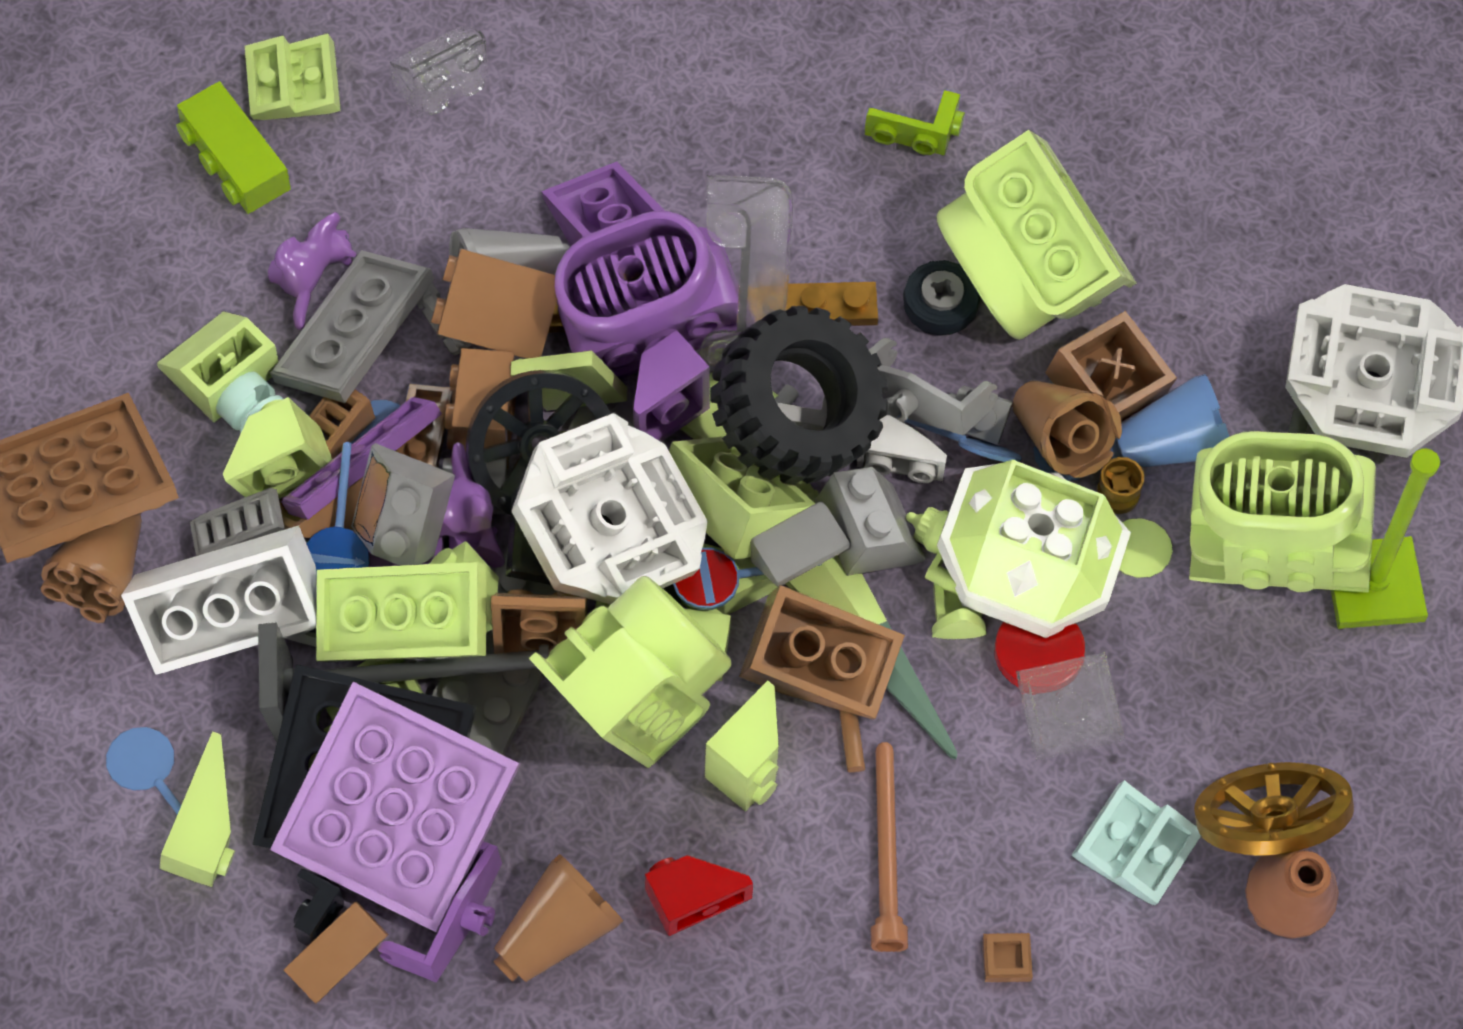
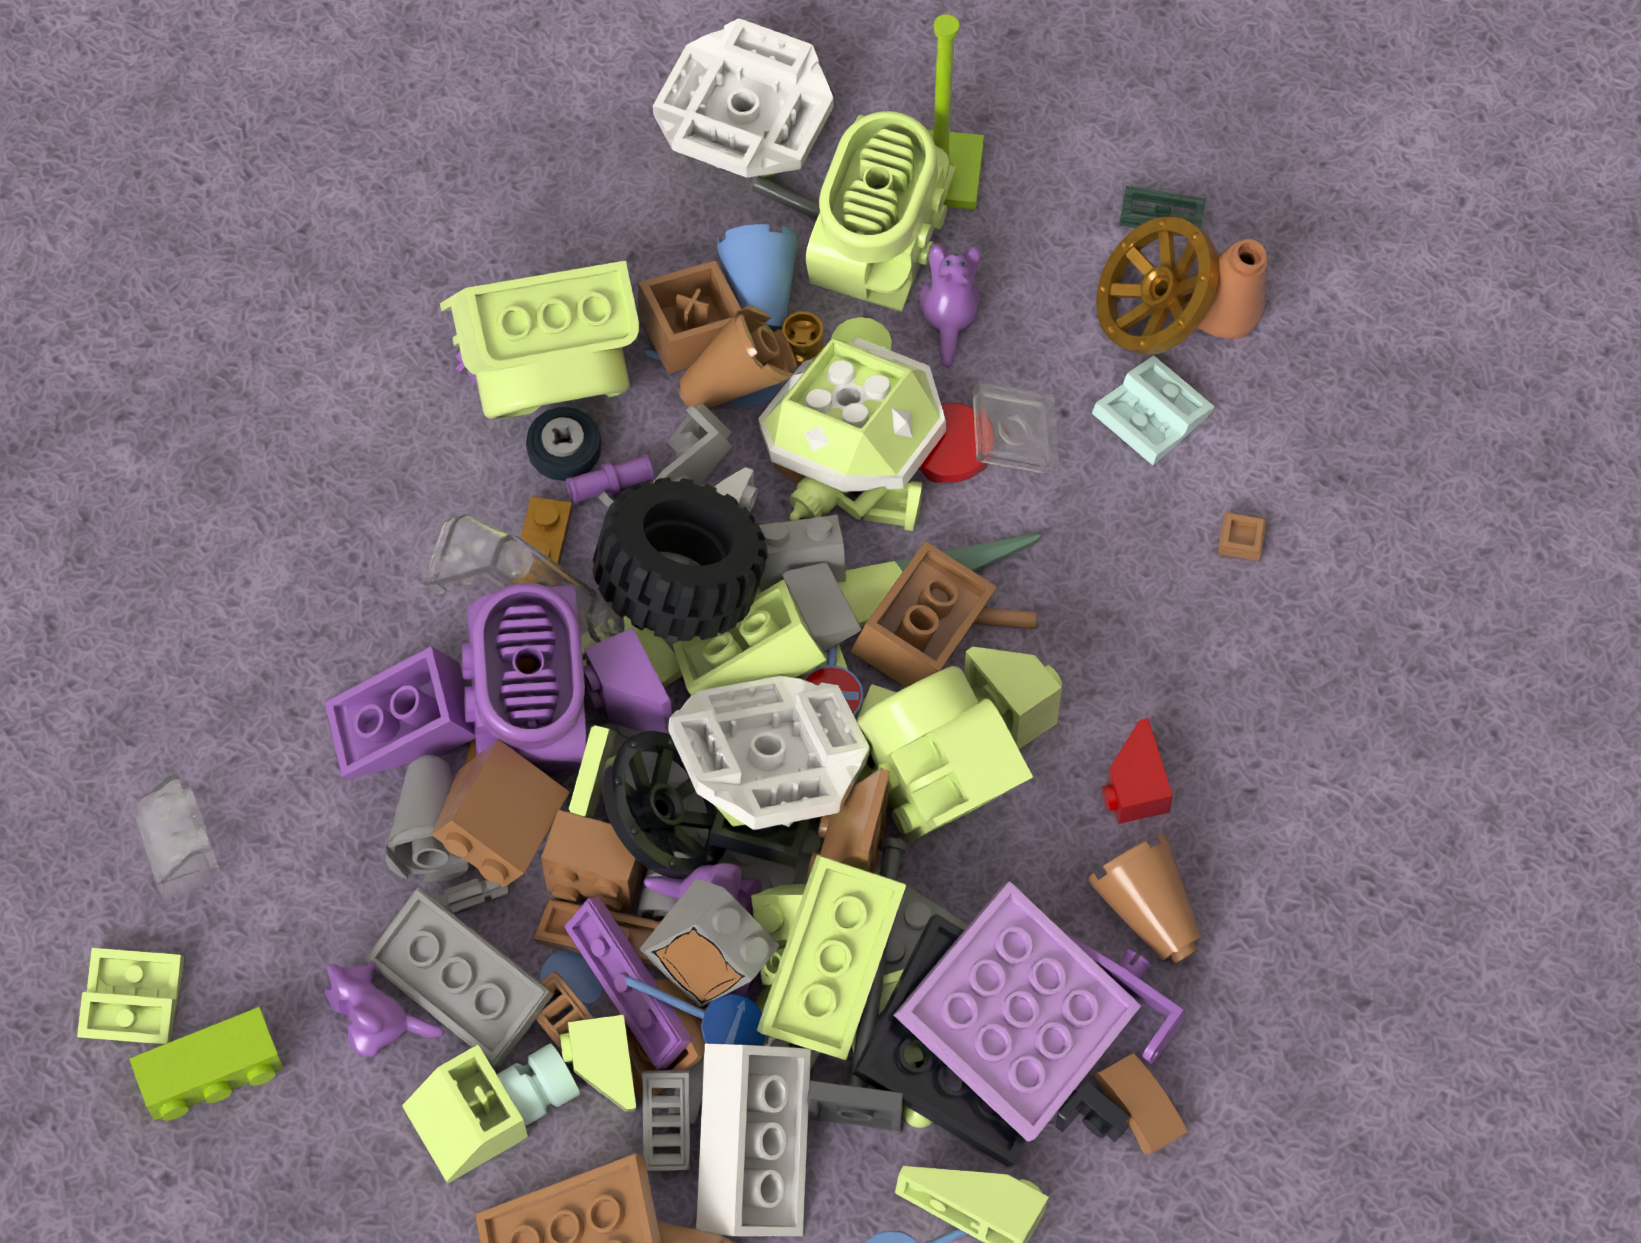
camera: 75 degrees left, 0 degrees up
(889, 932) = (1200, 622): nougat piece -> none
(912, 345) = (610, 479): none -> medium lavender pin
(920, 135) = (383, 405): lime bracket -> none
(975, 446) = (742, 436): medium blue piece -> none
(1206, 614) = (951, 298): none -> medium lavender animal
(1393, 849) = (1136, 215): none -> clear green tile

